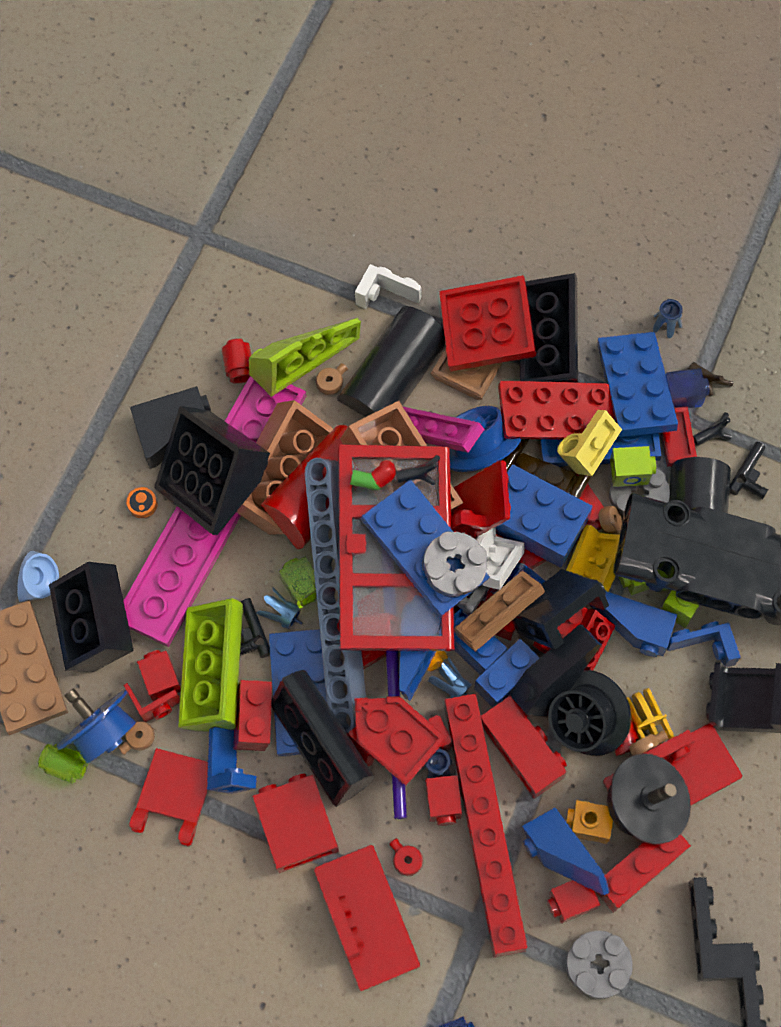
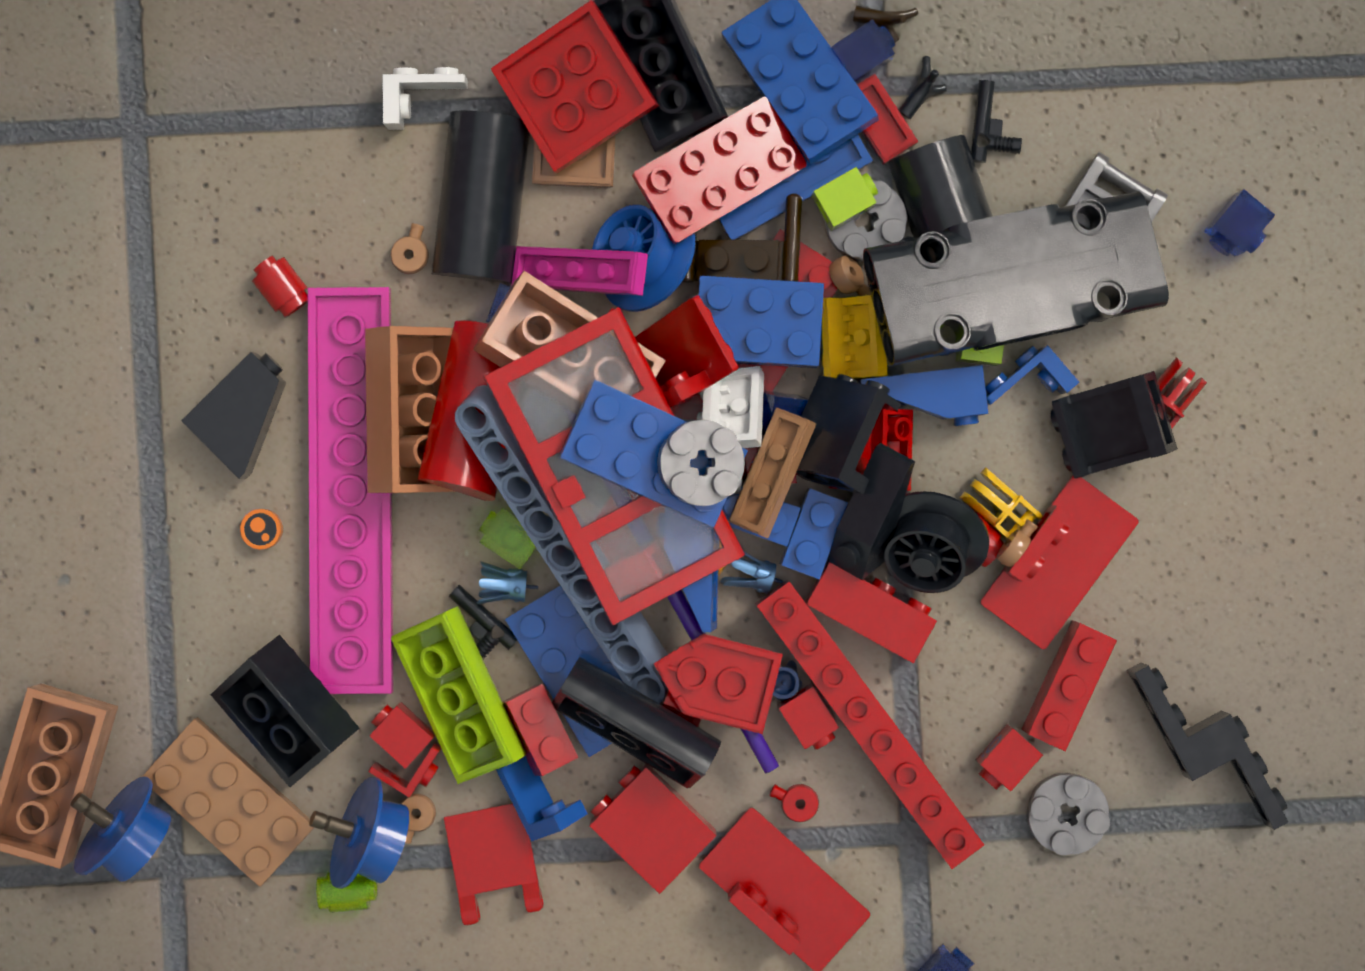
camera: 30 degrees left, 20 degrees up
(35, 576) = (187, 685): light blue piece -> none
(209, 468) = (328, 460): black slope -> none
(294, 357) = (349, 256): lime wedge -> none
(377, 478) = (554, 399): arm -> none
(418, 472) = (601, 362): black bar -> none
(437, 722) = (766, 640): red tile -> none
(562, 851) = (969, 715): blue slope -> none
(587, 449) = (784, 207): light yellow plate -> none
(590, 821) = (988, 660): light orange brick -> none
(649, 799) = (1049, 613): black piece -> none

